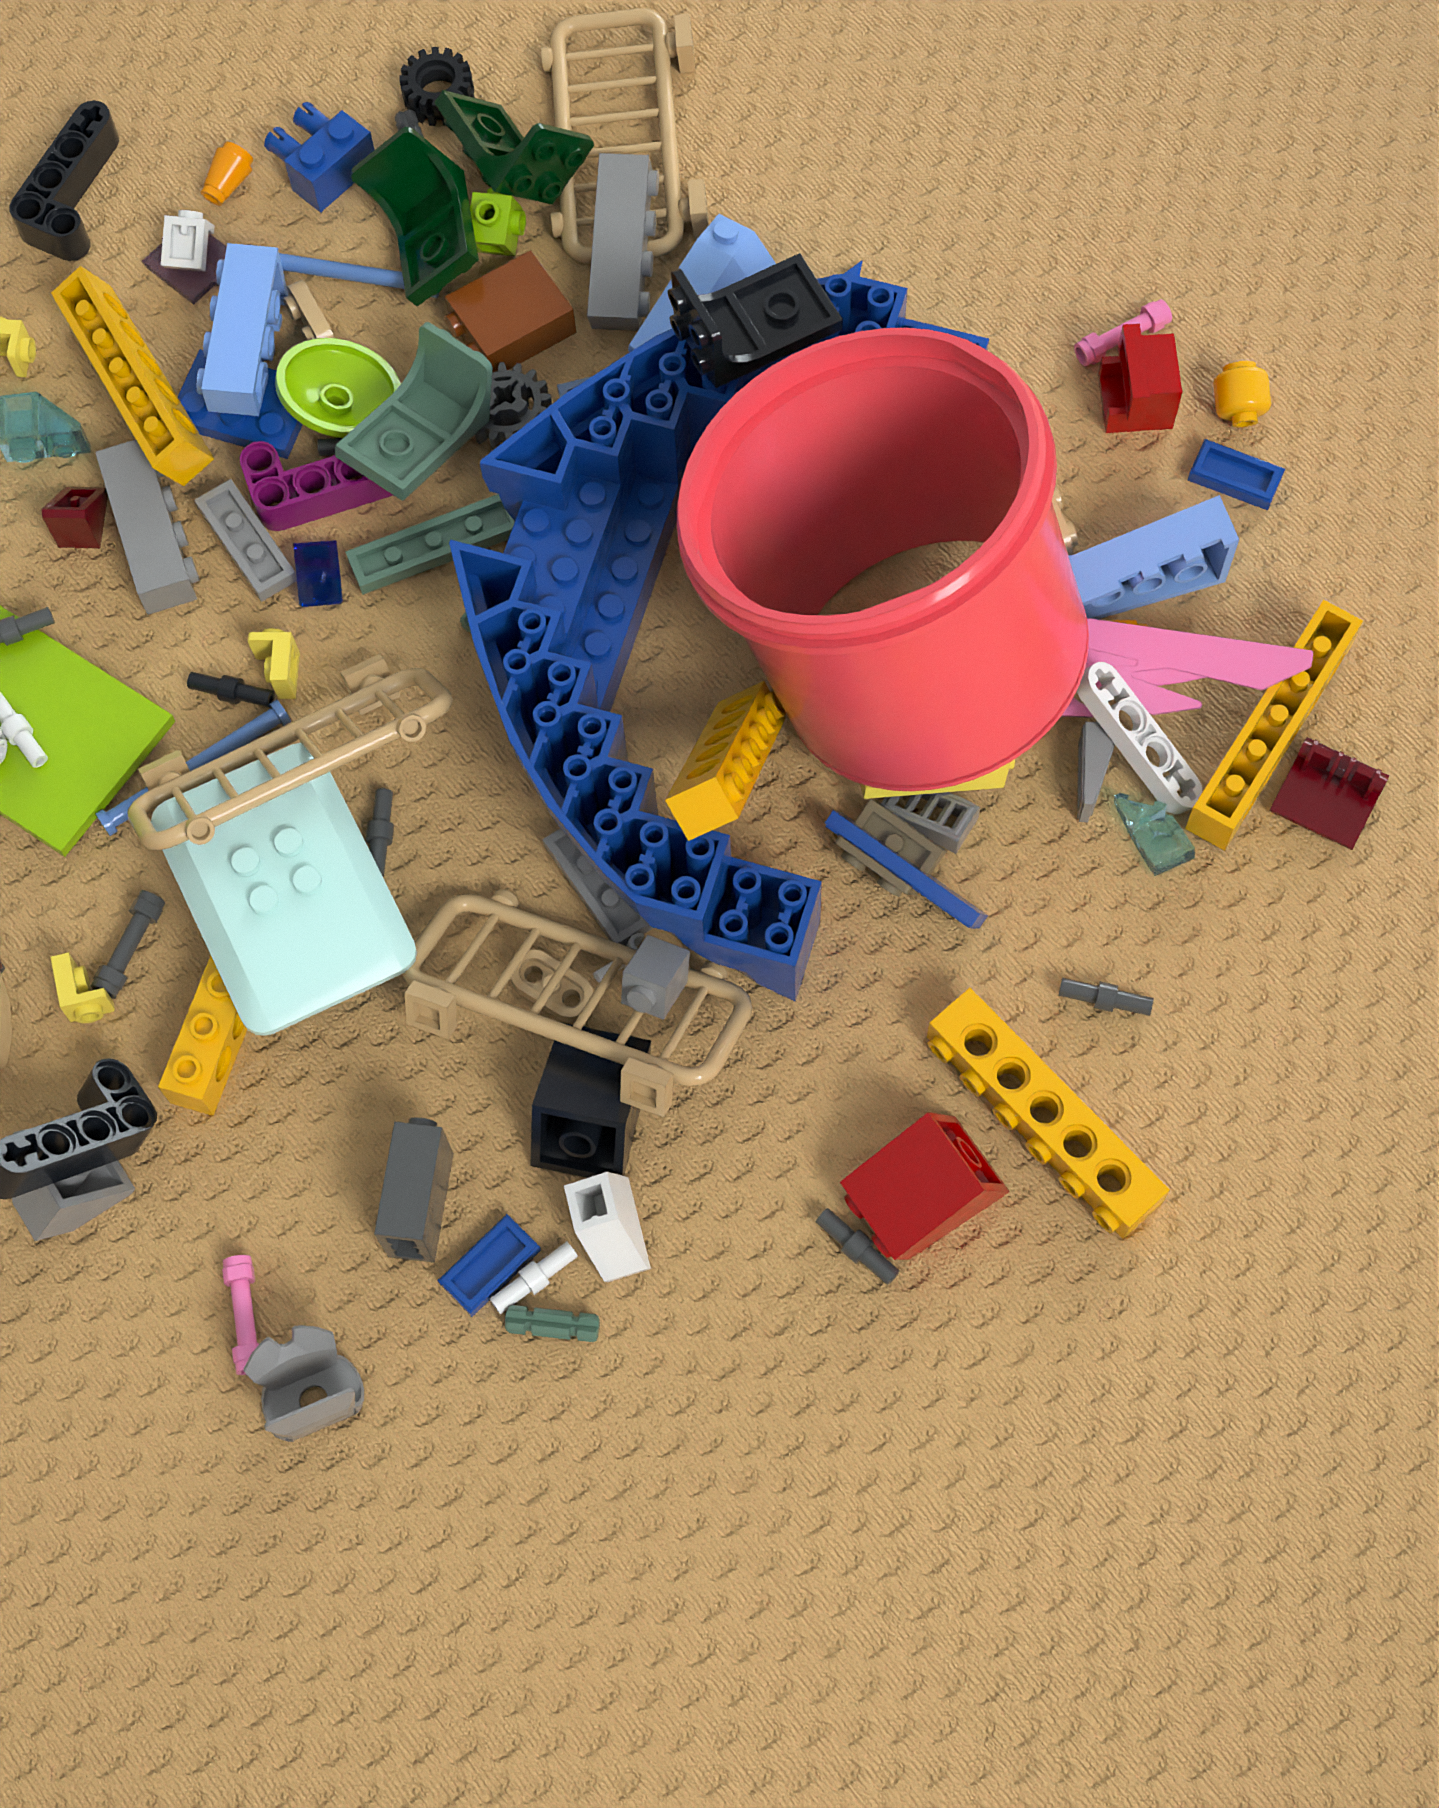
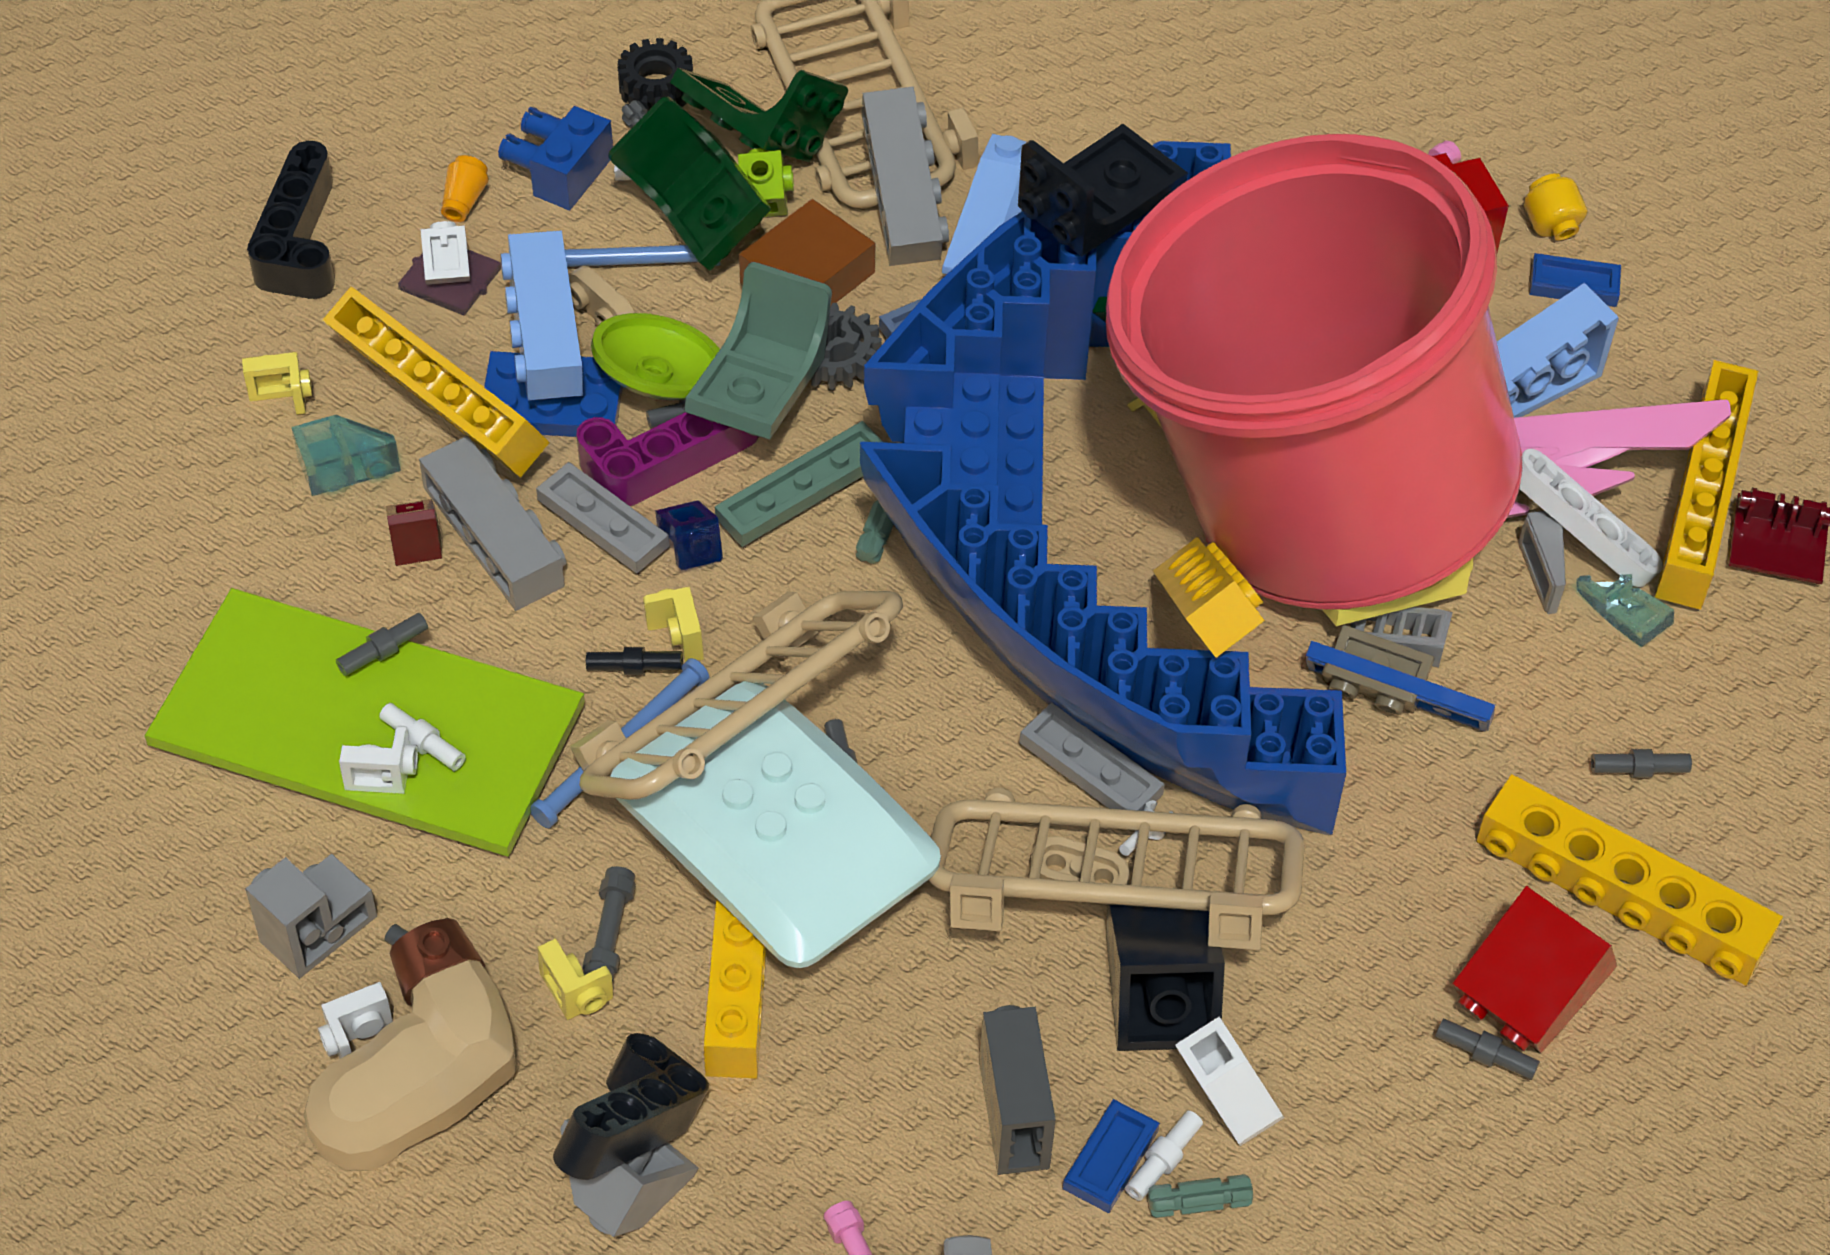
camera: 20 degrees left, 15 degrees down
(655, 977) = (1199, 822): light grey brick -> none

